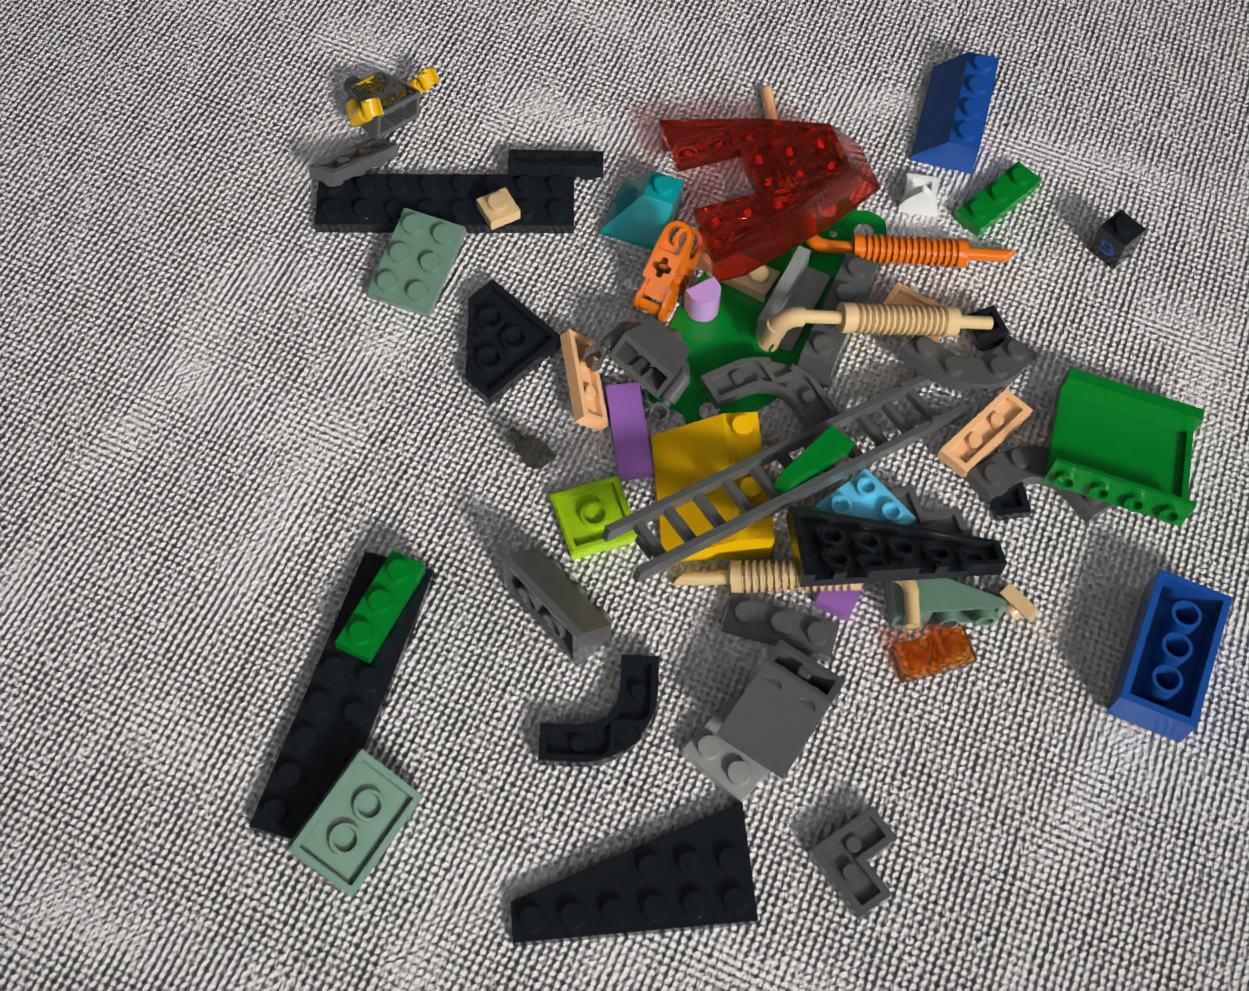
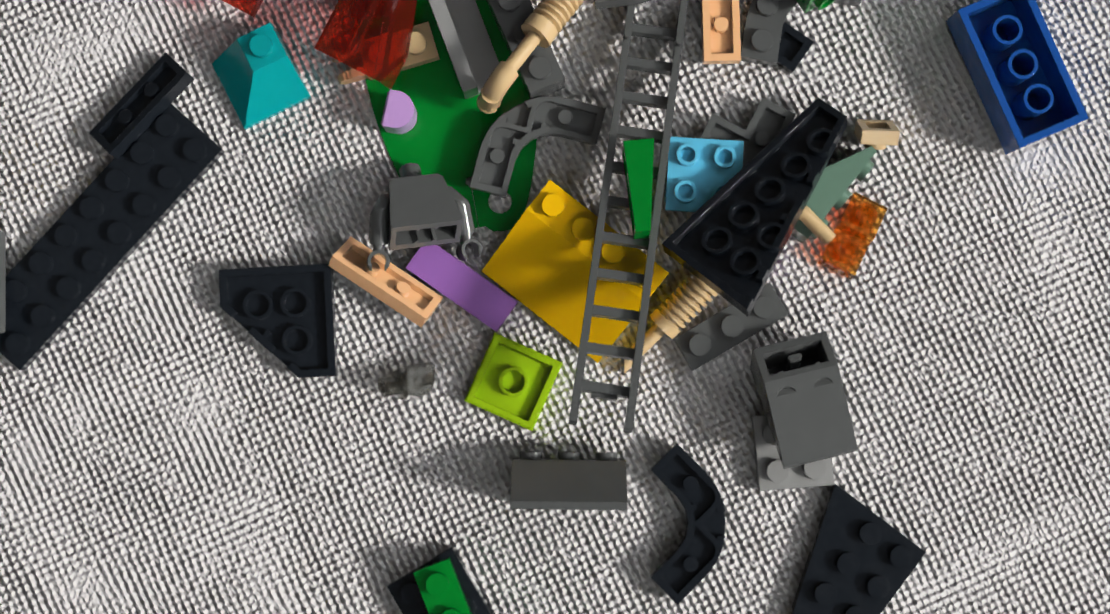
camera: 45 degrees left, 25 degrees up
(416, 262) = (142, 317): sand green plate -> none
(498, 208) = (150, 203): tan plate -> none
(664, 285) = (349, 119): orange piece -> none
(845, 860) = (938, 450): dark grey plate -> none

